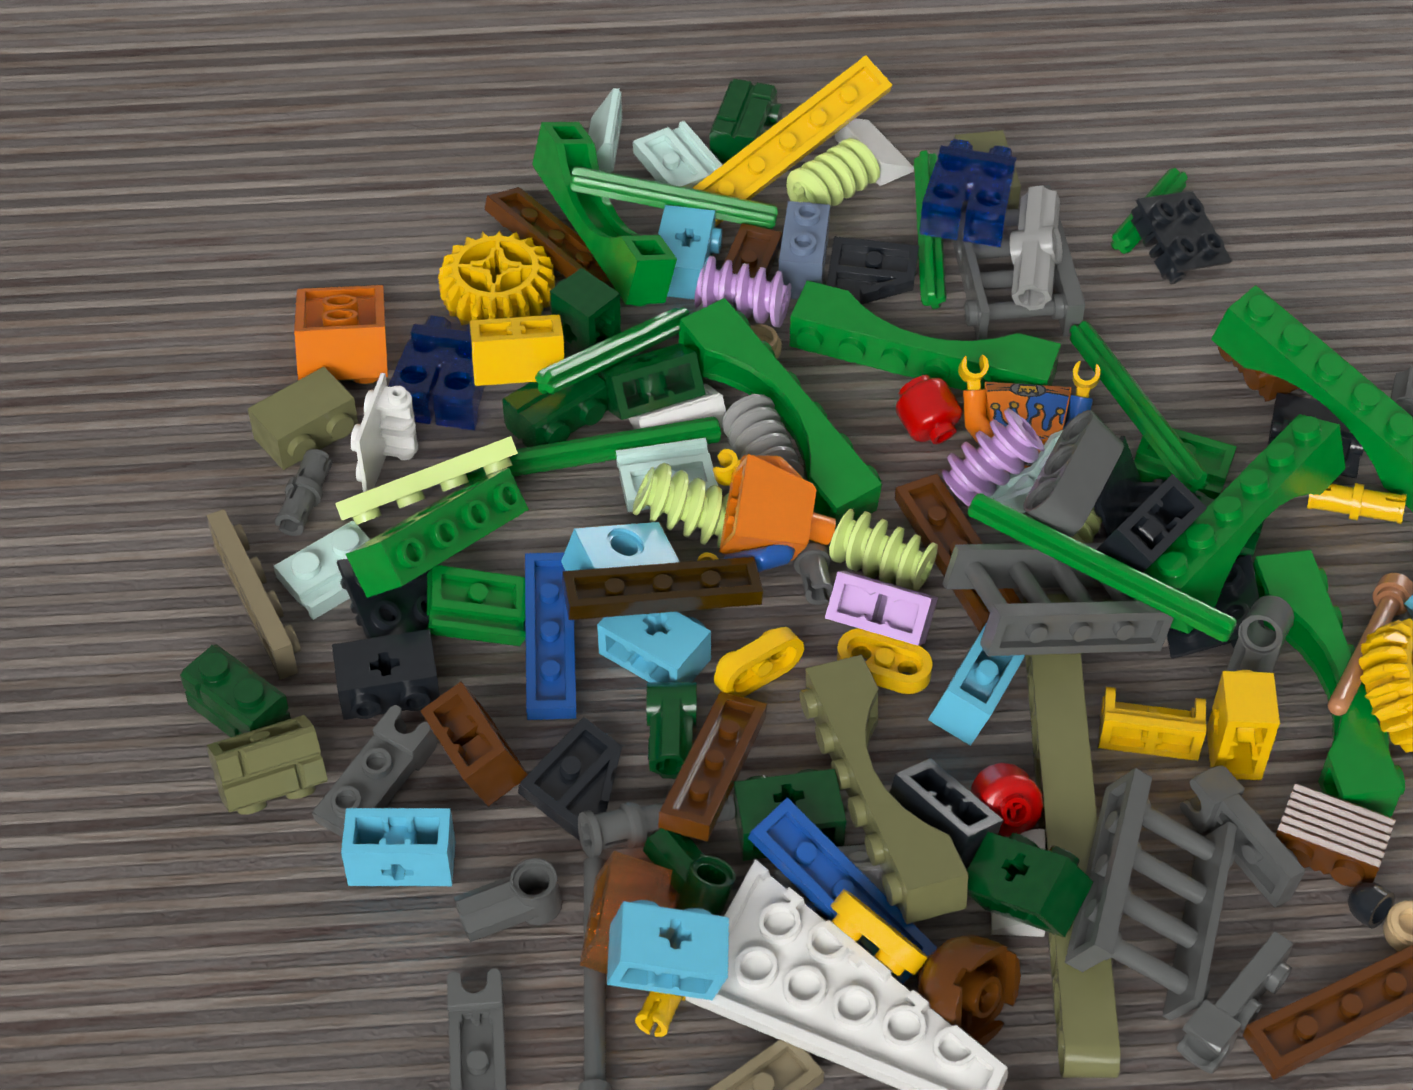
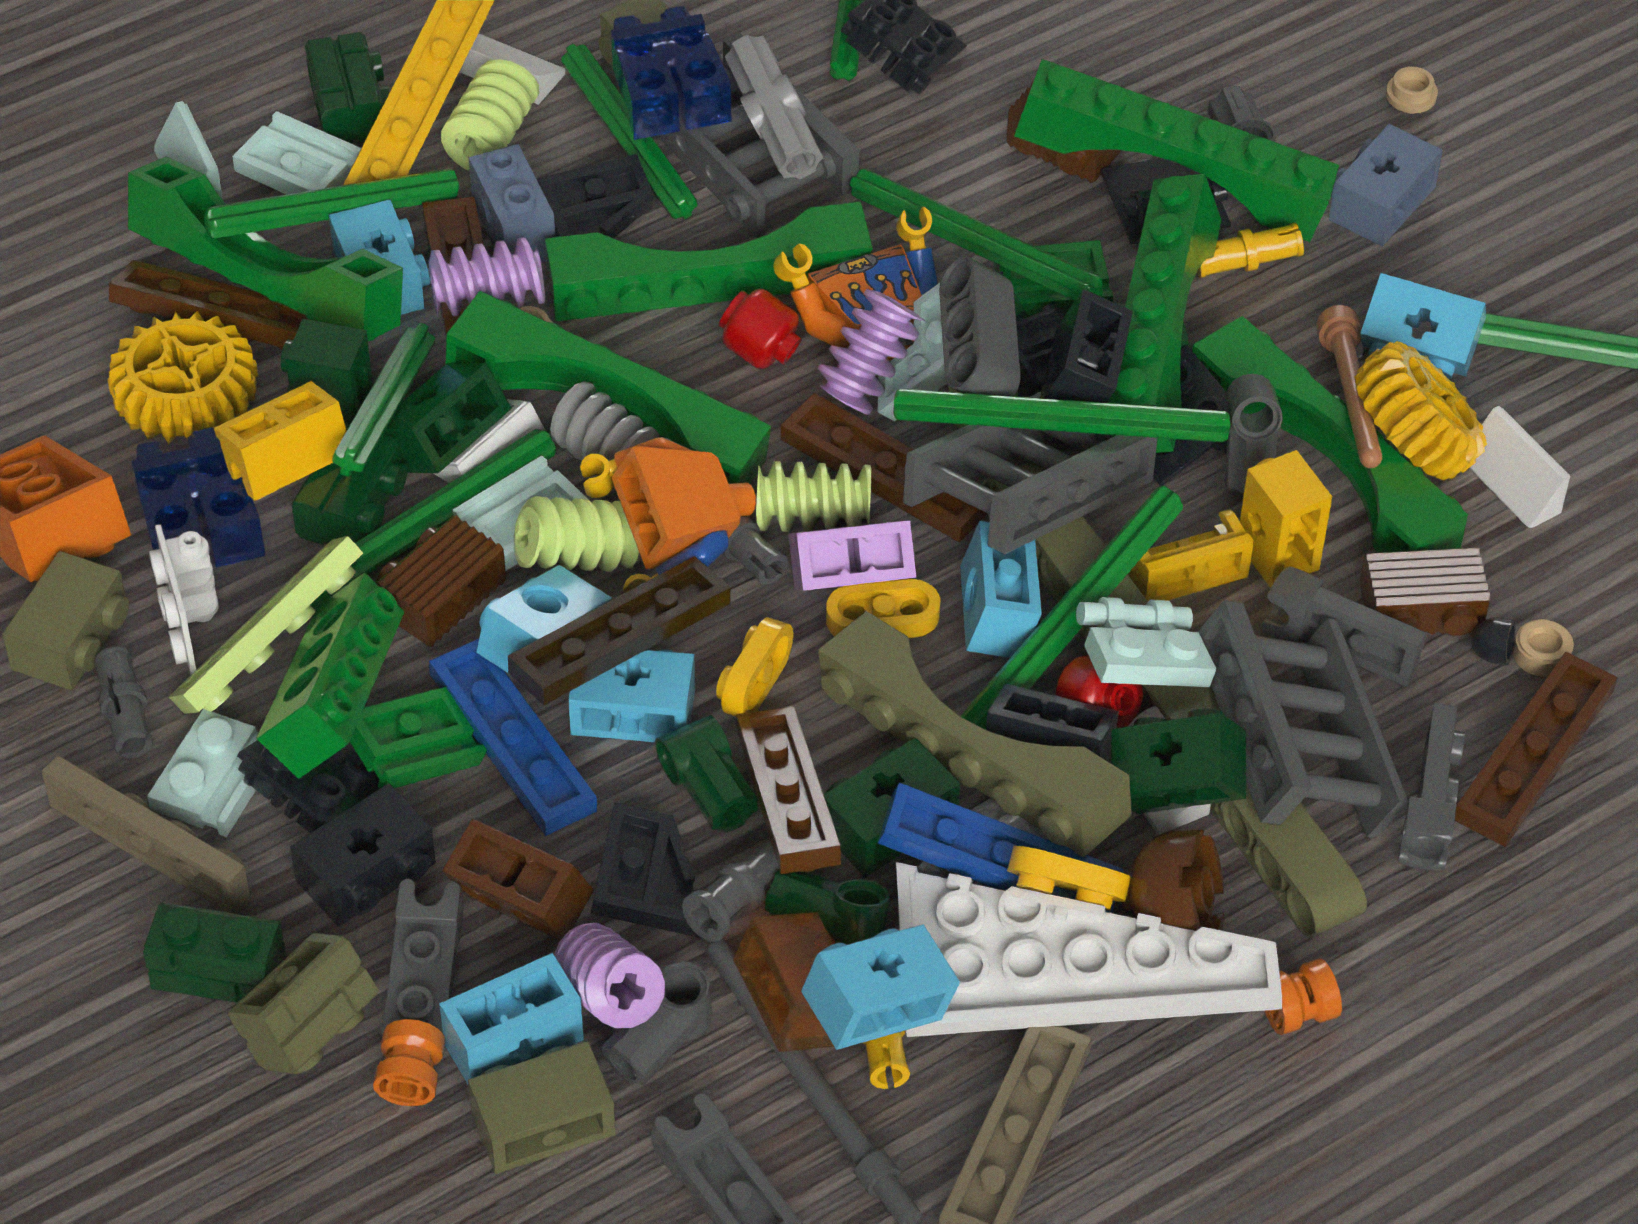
camera: 30 degrees left, 0 degrees up
(313, 843) = (408, 1067): none -> orange wheel
(382, 921) = (541, 1106): none -> olive brick
(486, 845) = (611, 975): none -> lavender piece
(574, 497) = (443, 578): none -> reddish brown brick
(1033, 718) = (1096, 582): none -> green axle
(1051, 785) = (1150, 656): none -> light aqua plate

